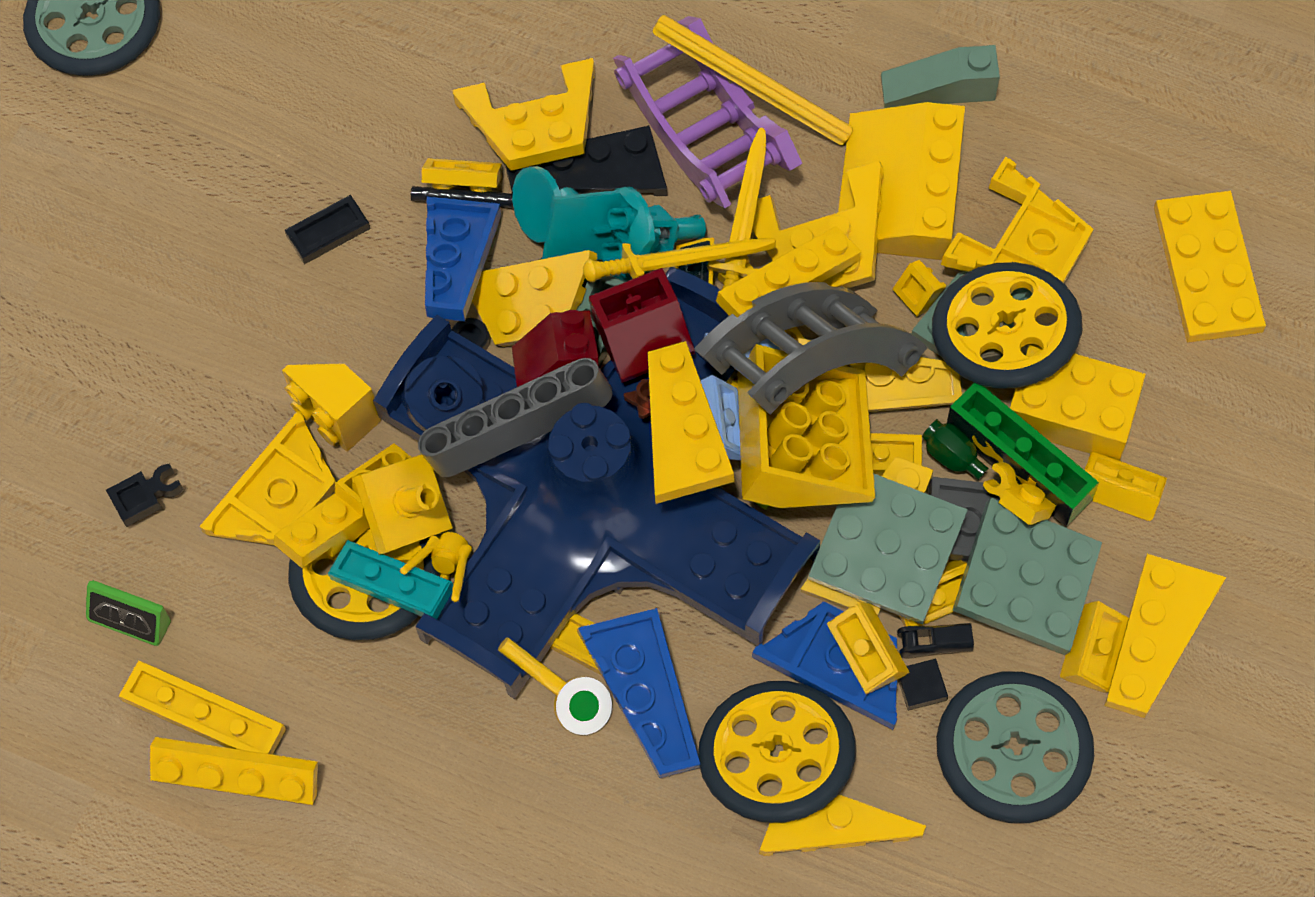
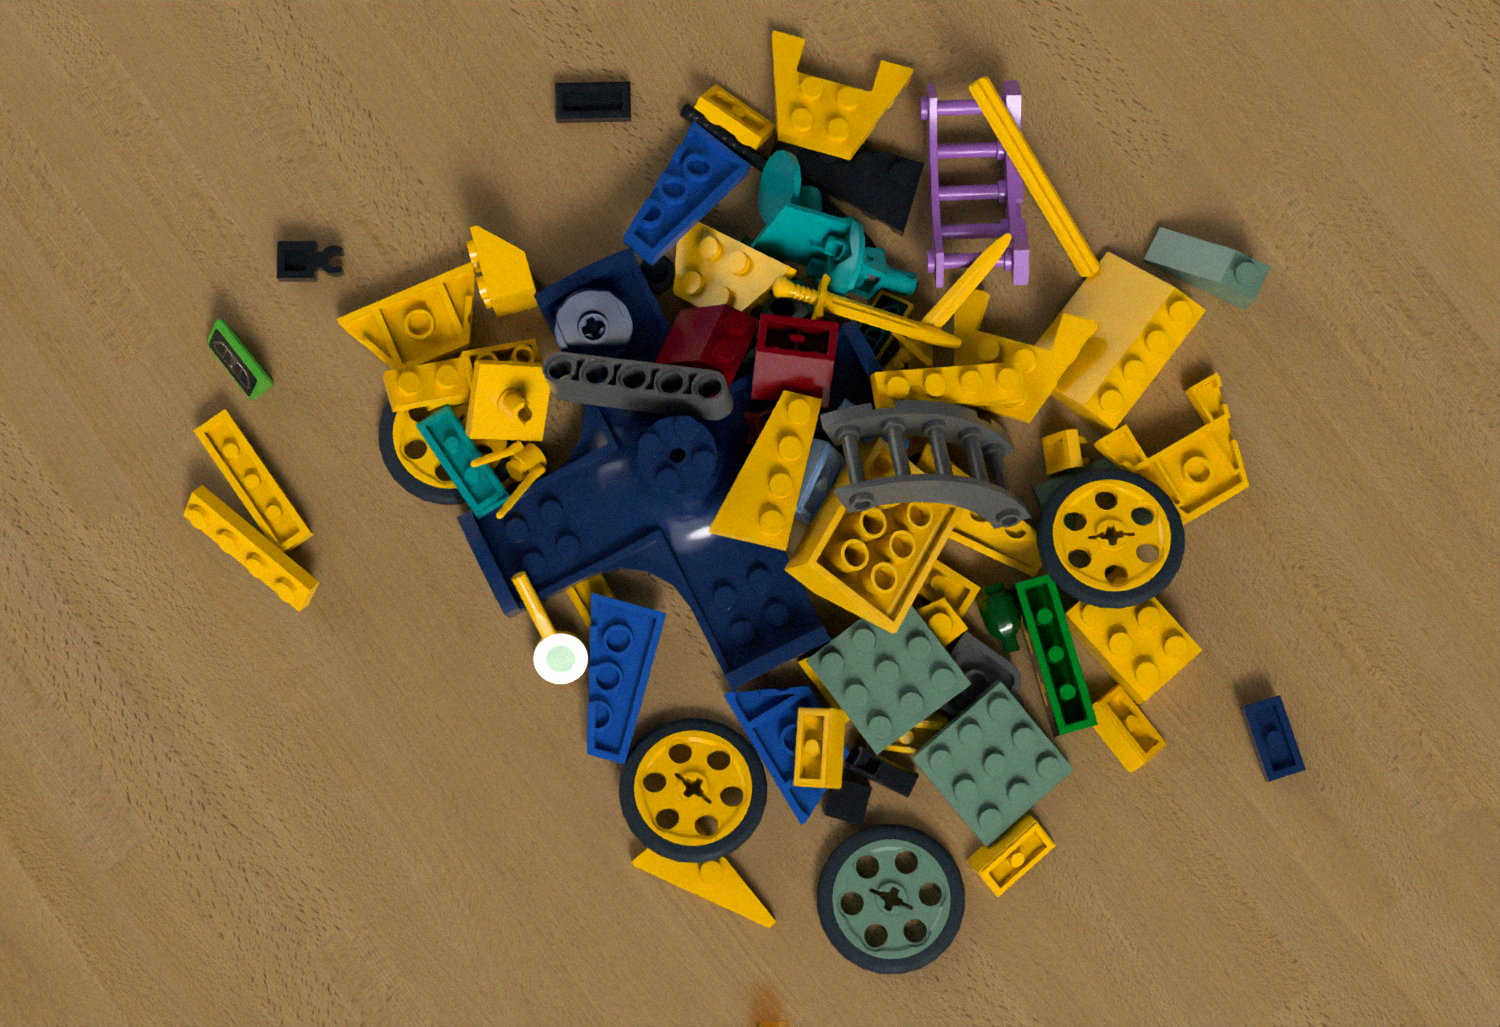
camera: 25 degrees right, 15 degrees up
(1023, 500) = (1023, 696): yellow plate -> none
(1159, 627) = (1076, 868): yellow wing -> none
(1209, 266) = (1330, 576): yellow plate -> none
(1253, 420) = (1272, 738): none -> dark blue plate

